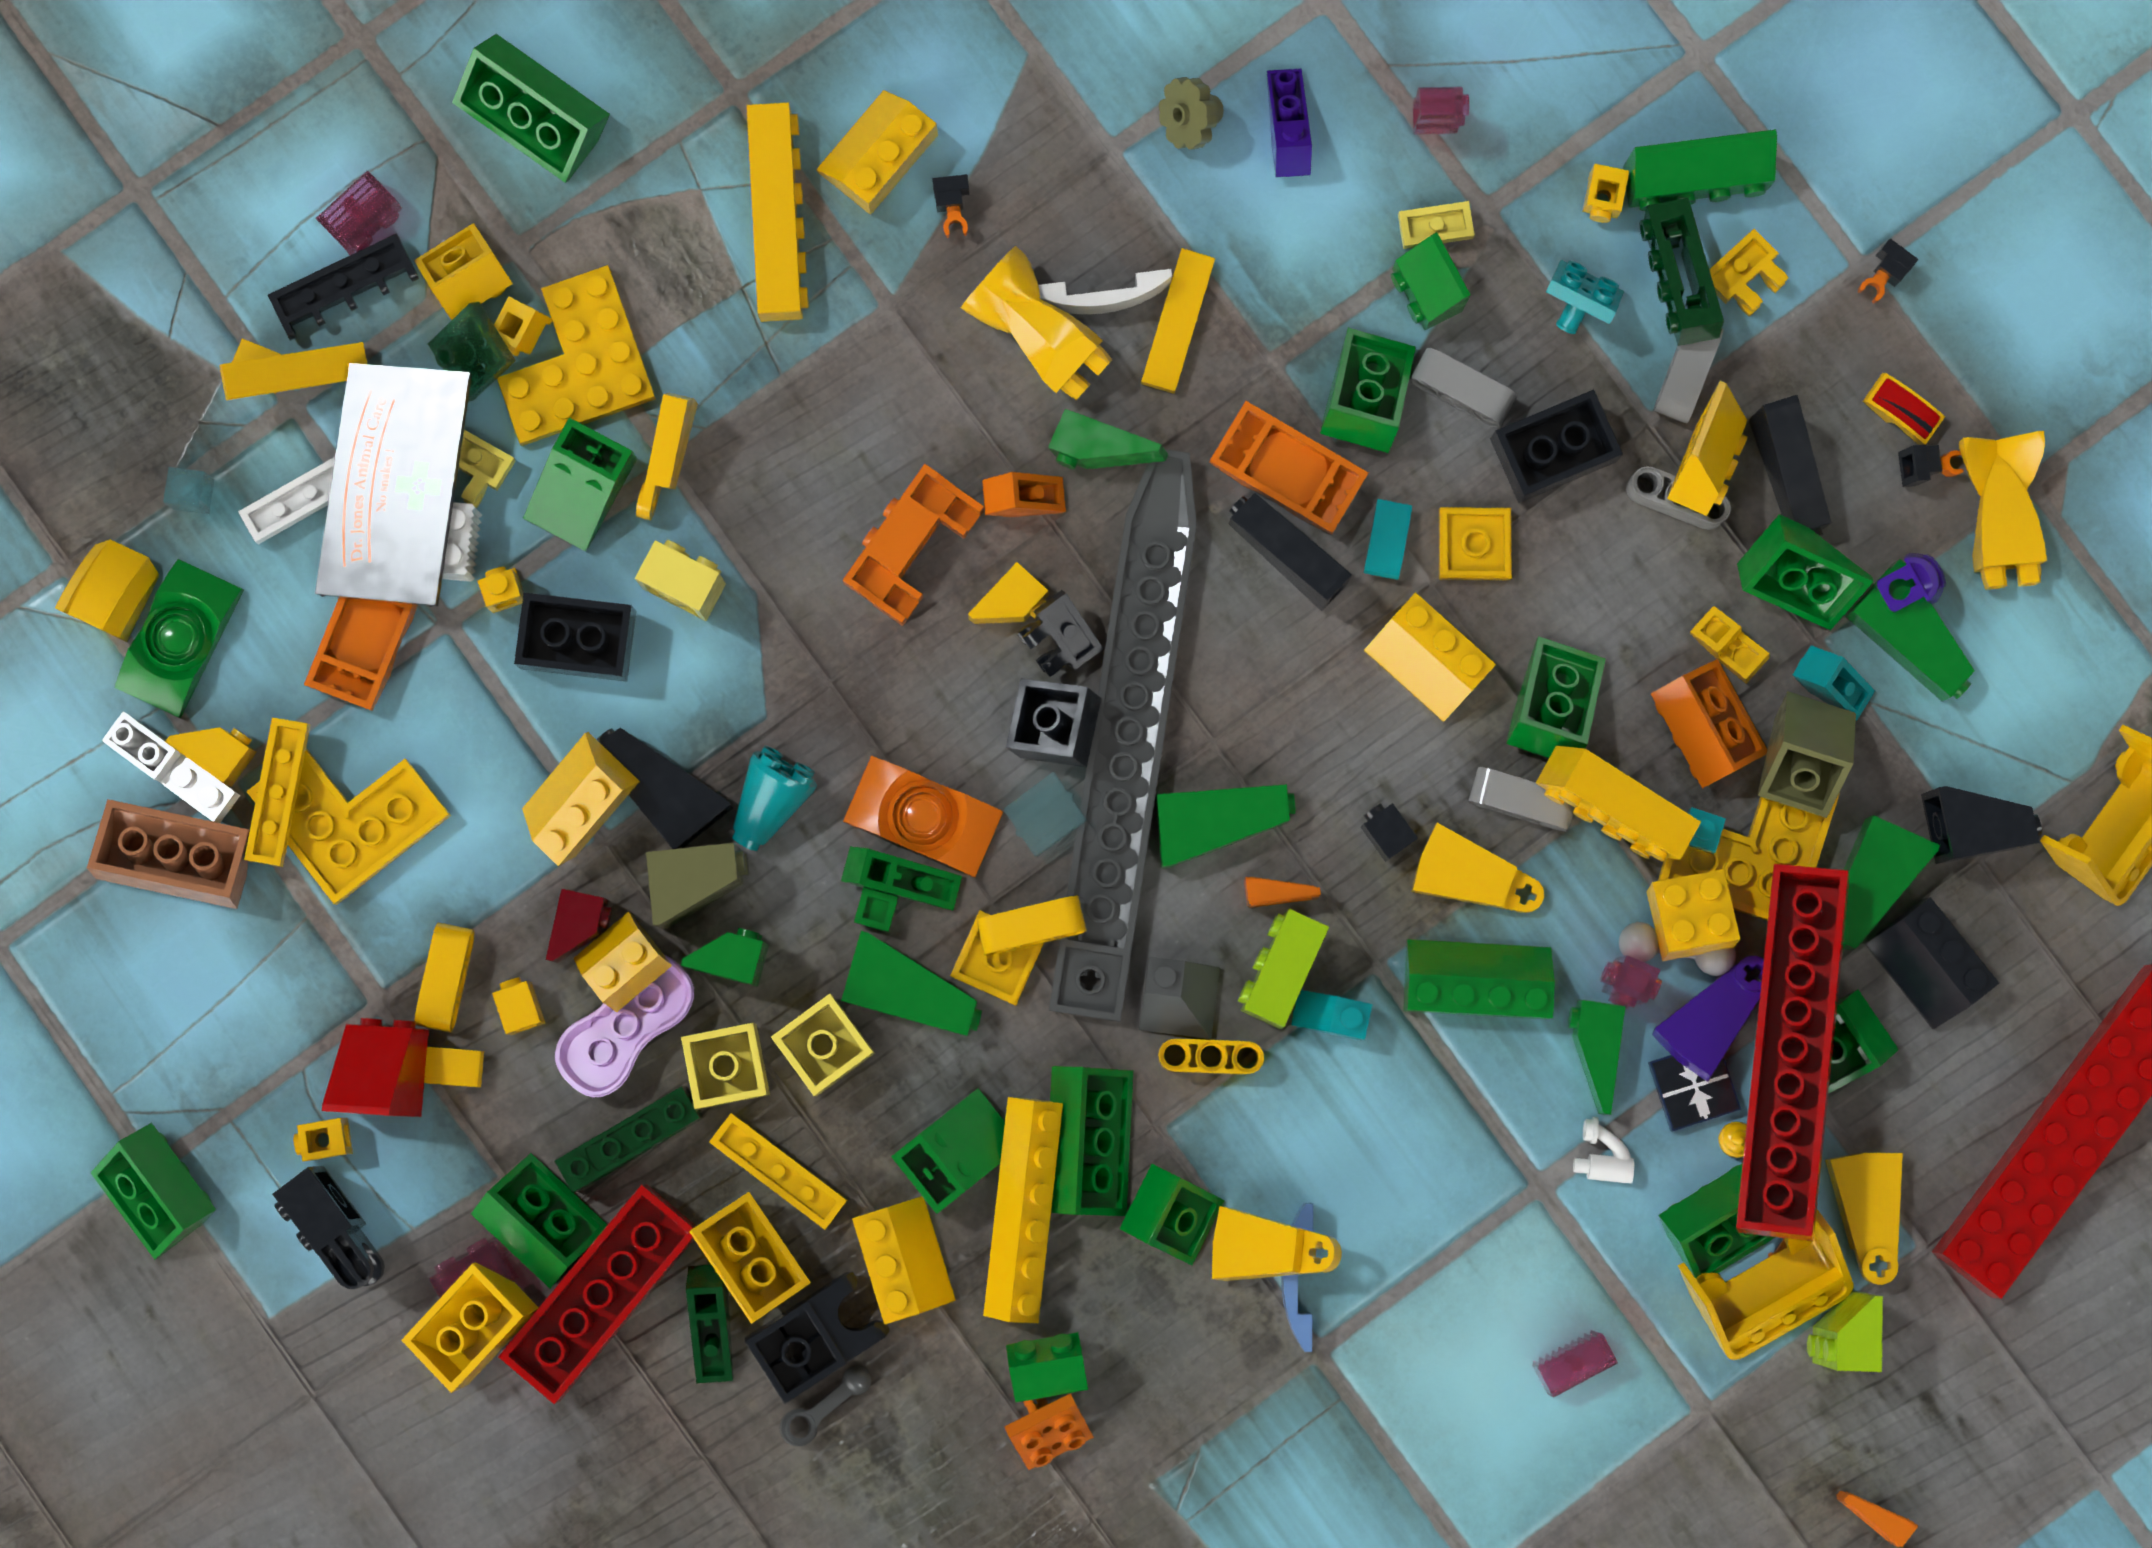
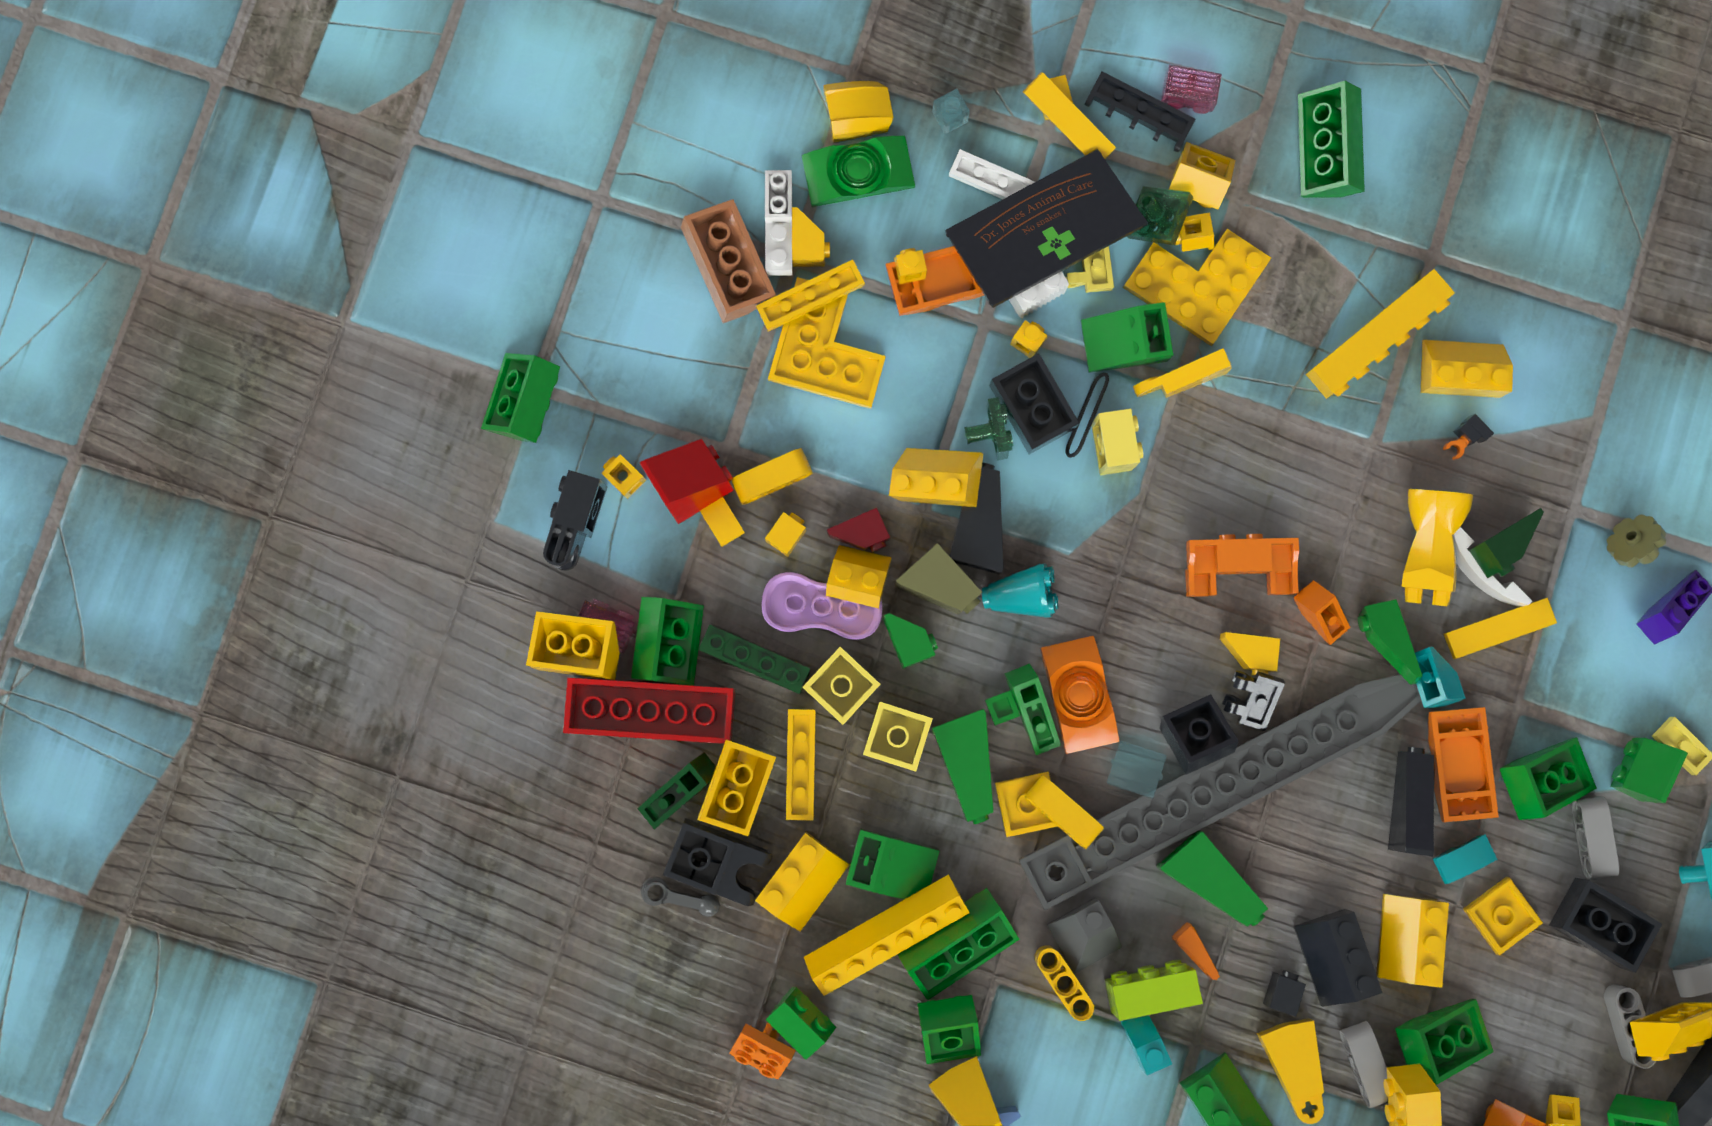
camera: 55 degrees right, 0 degrees up
(326, 660) = (910, 266): none -> yellow brick
(570, 702) = (993, 429): none -> clear green plate
(625, 591) = (1092, 416): none -> black piece
(1093, 254) = (1507, 546): none -> dark green slope
(1181, 429) = (1439, 681): none -> teal slope
(1392, 750) = (1338, 958): none -> black slope

